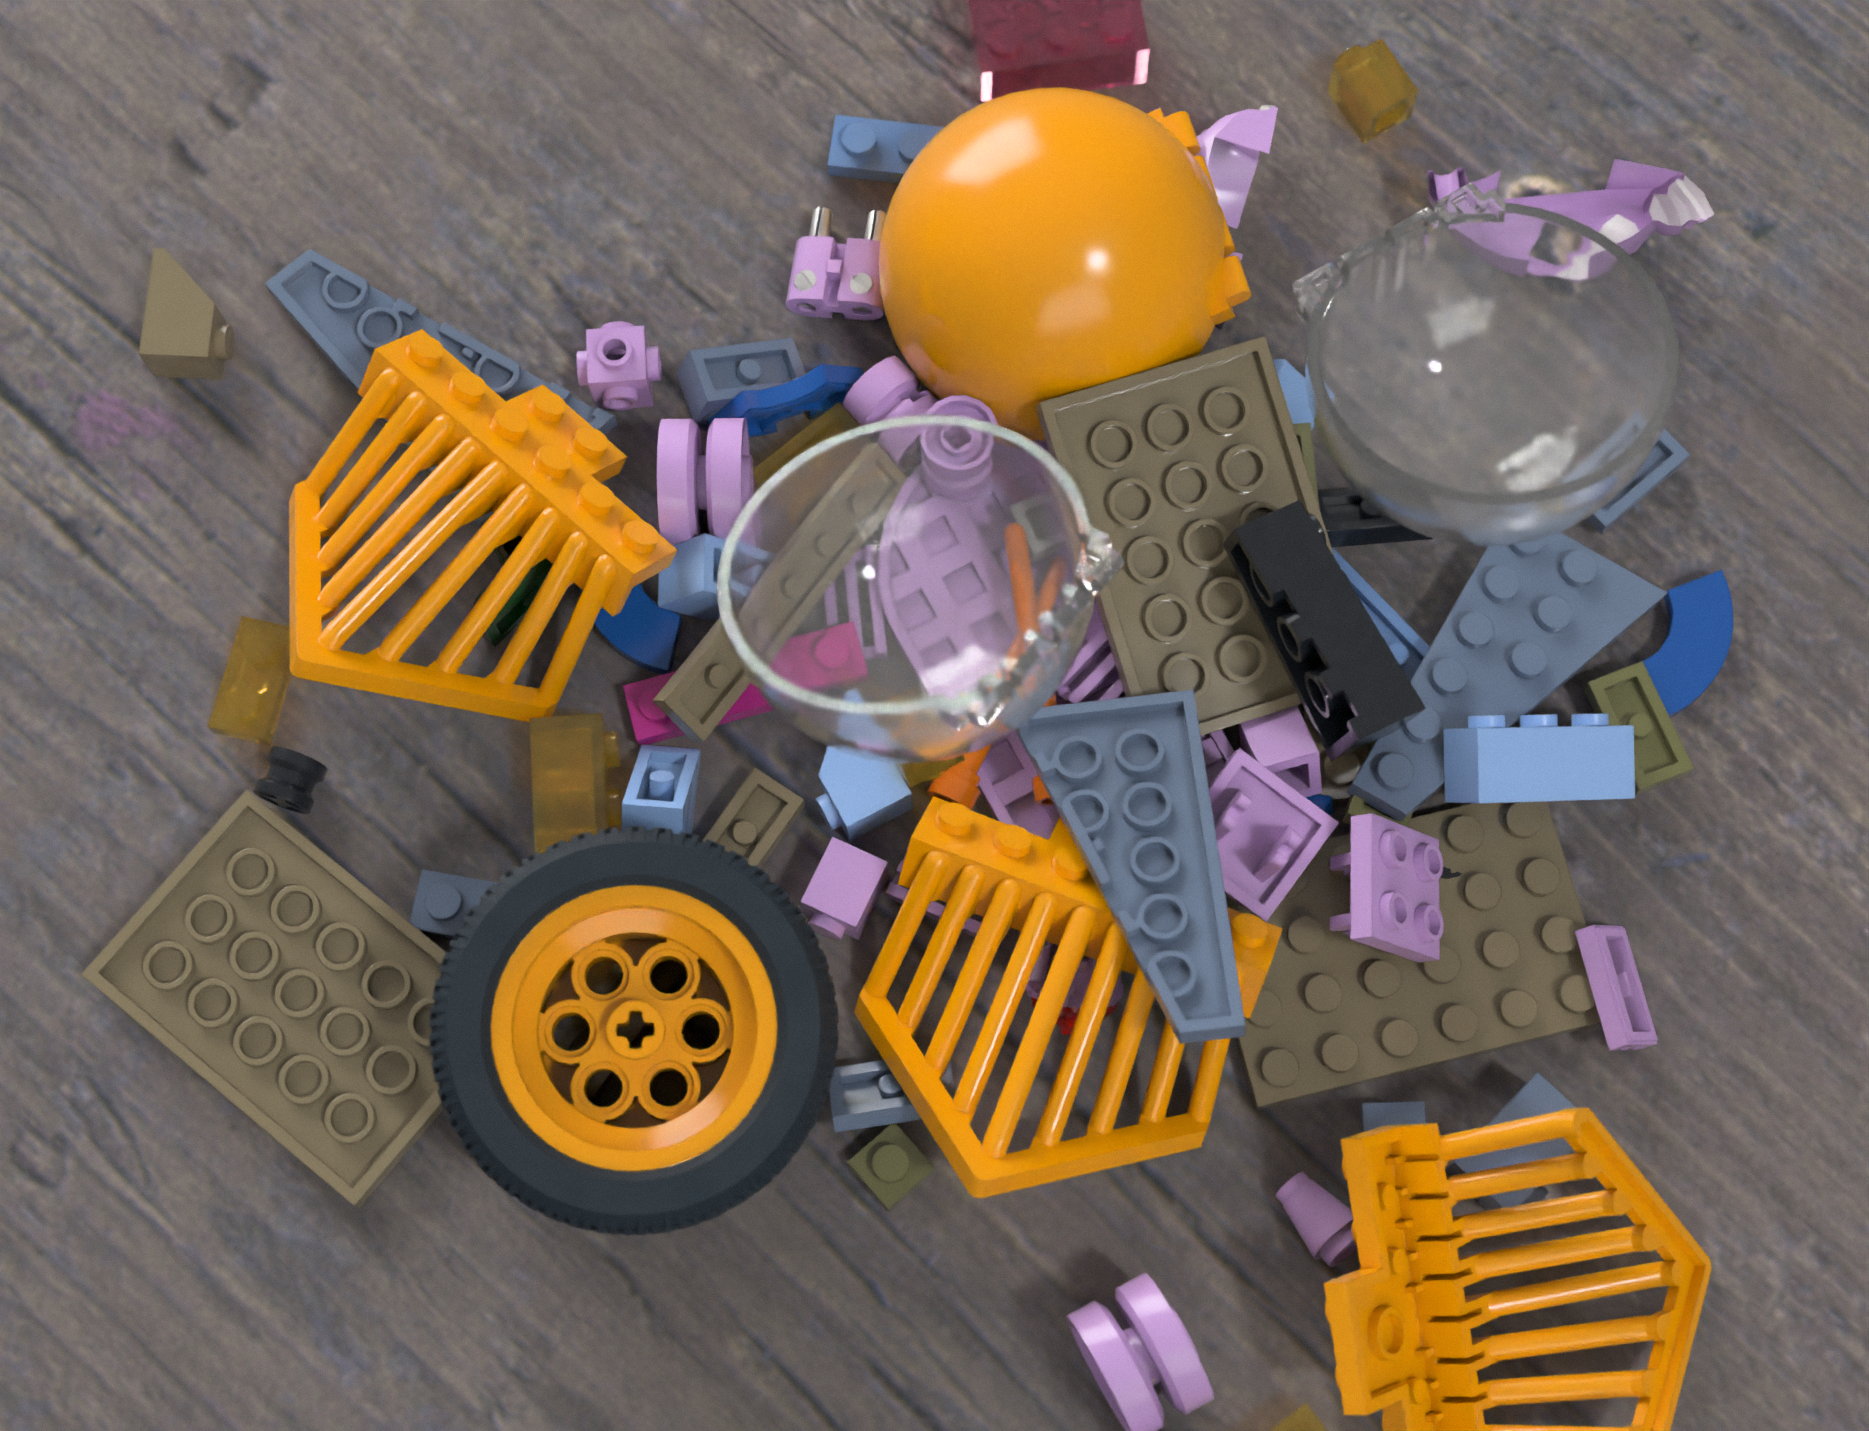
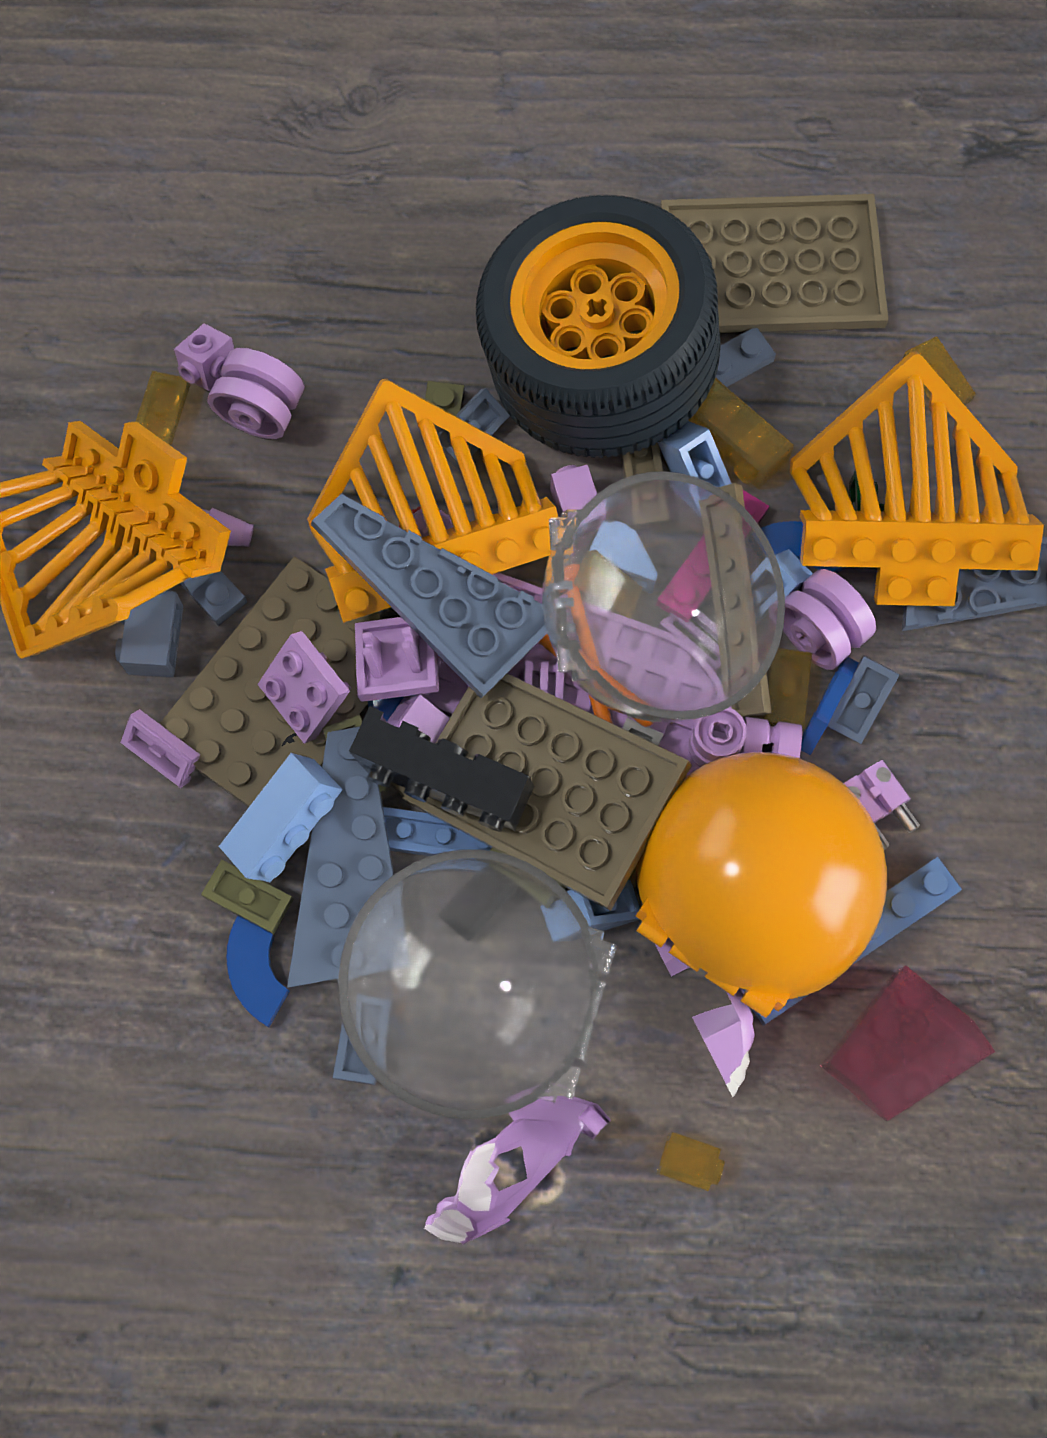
camera: 135 degrees right, 0 degrees up
(290, 780) = (874, 341): black wheel -> none
(619, 366) = (928, 651): lavender brick -> none

